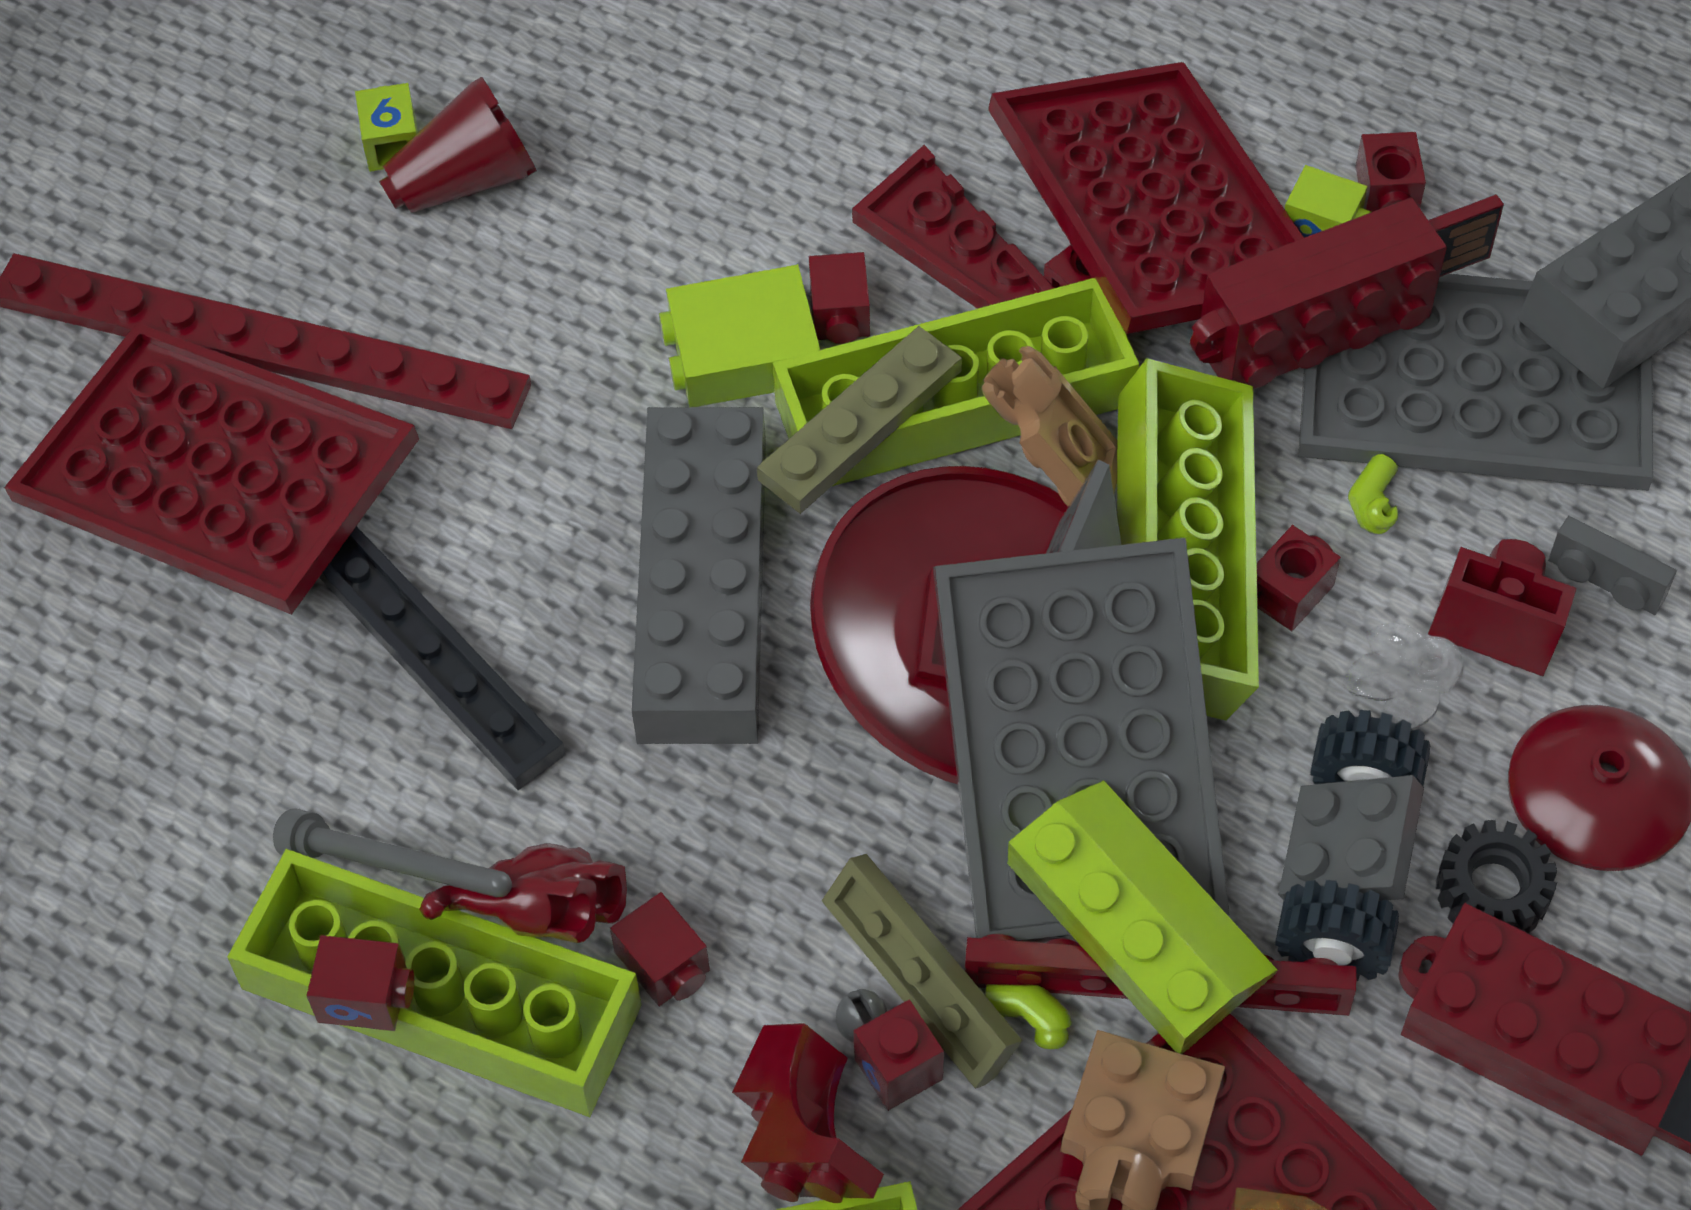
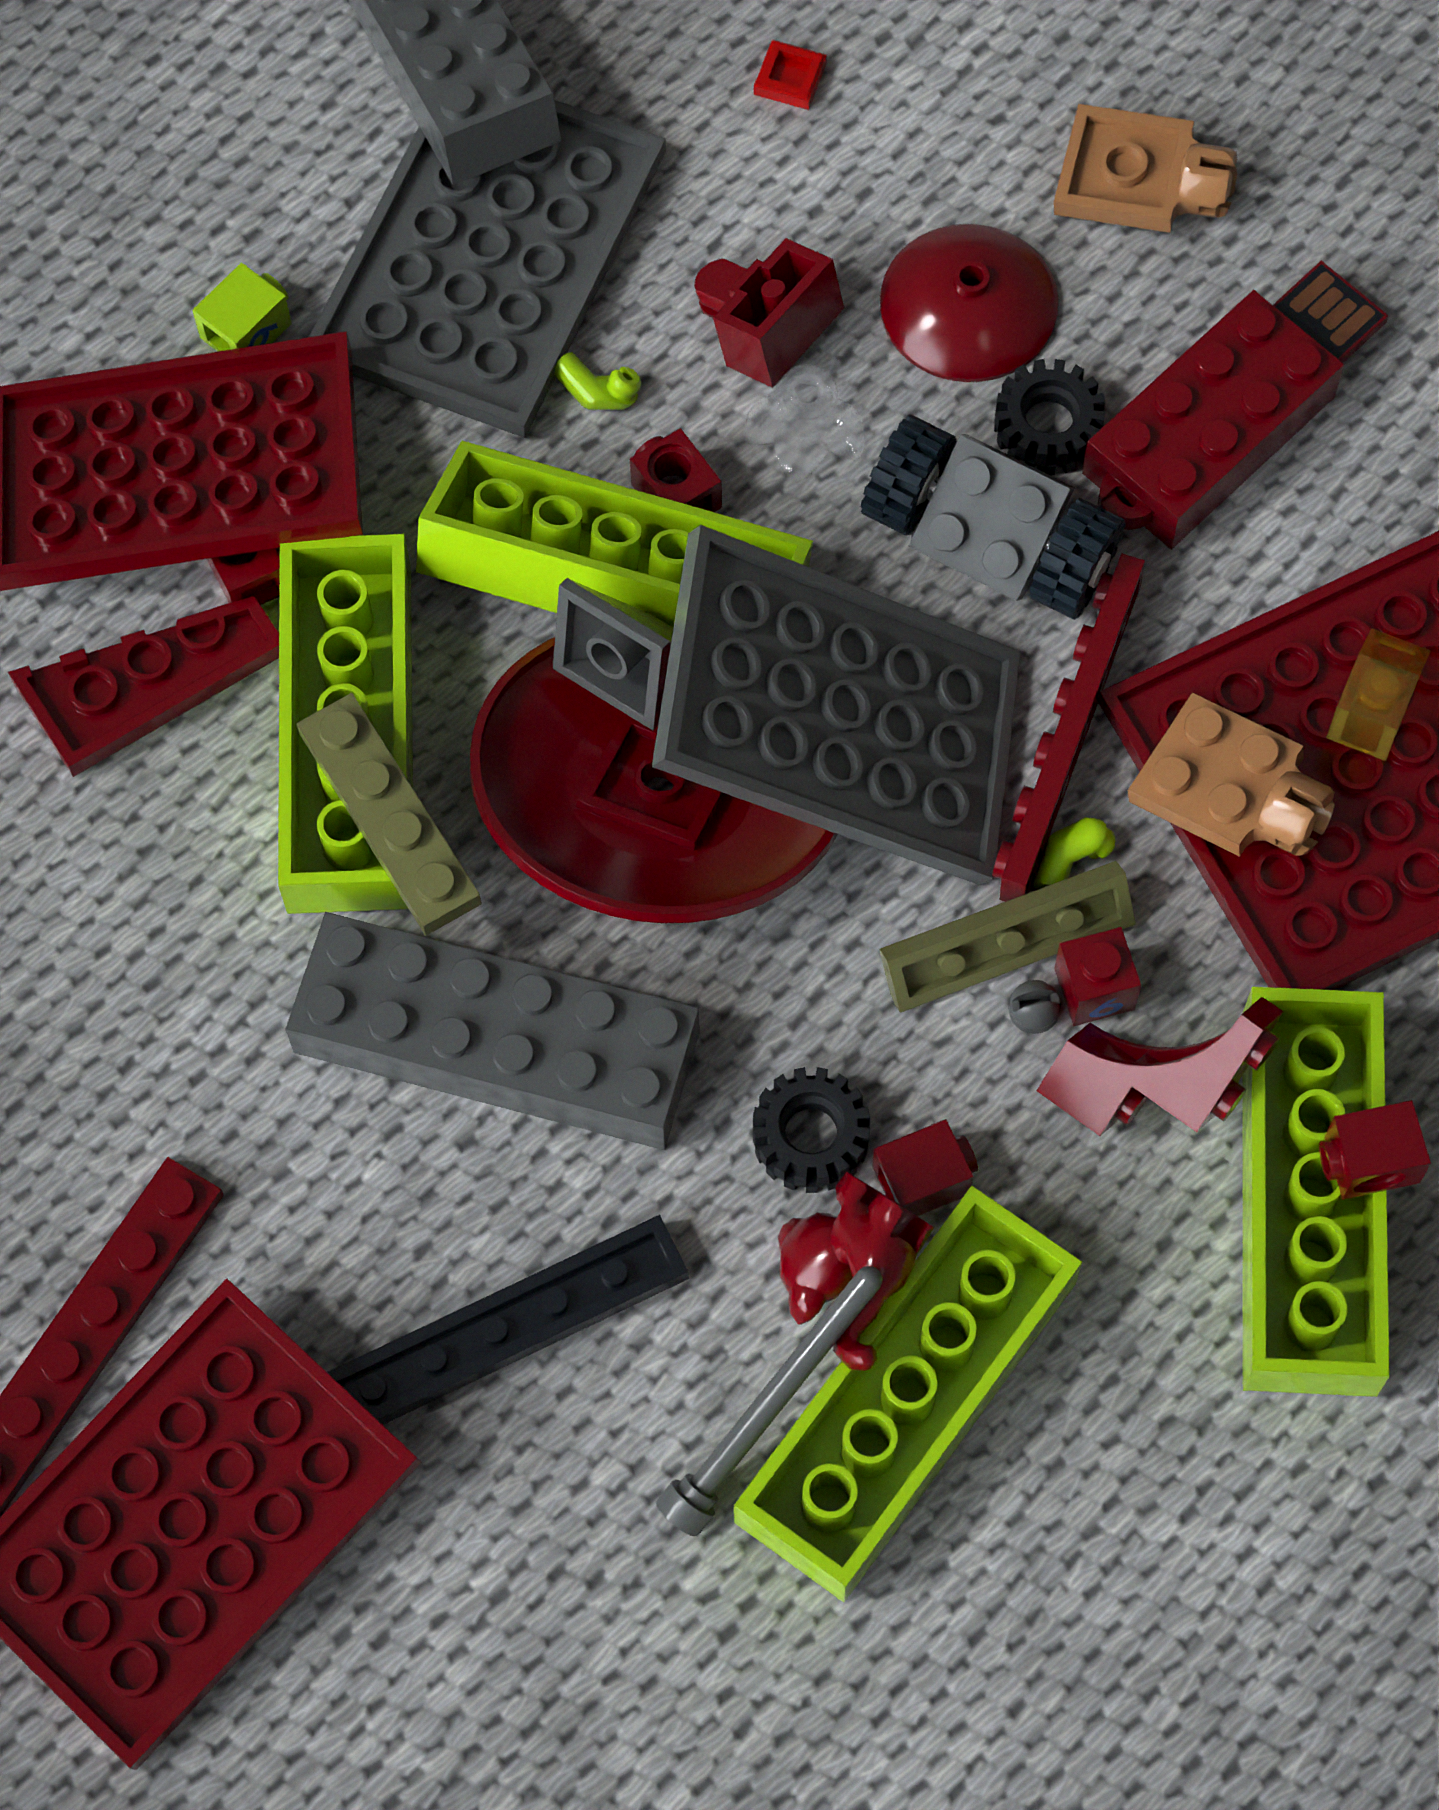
camera: 75 degrees left, 10 degrees up
(359, 983) = (930, 1445): dark red brick -> none
(672, 817) = (816, 1093): none -> black tyre
(734, 332) = (199, 921): lime brick -> none
(839, 297) = (183, 810): dark red brick -> none
(1054, 421) = (445, 629): medium nougat plate -> none
(1138, 914) = (1038, 712): lime slope -> none
(1336, 289) = (388, 333): dark red piece -> none
(1390, 169) = (211, 223): dark red brick -> none
(1625, 572) = (734, 220): dark grey plate -> none

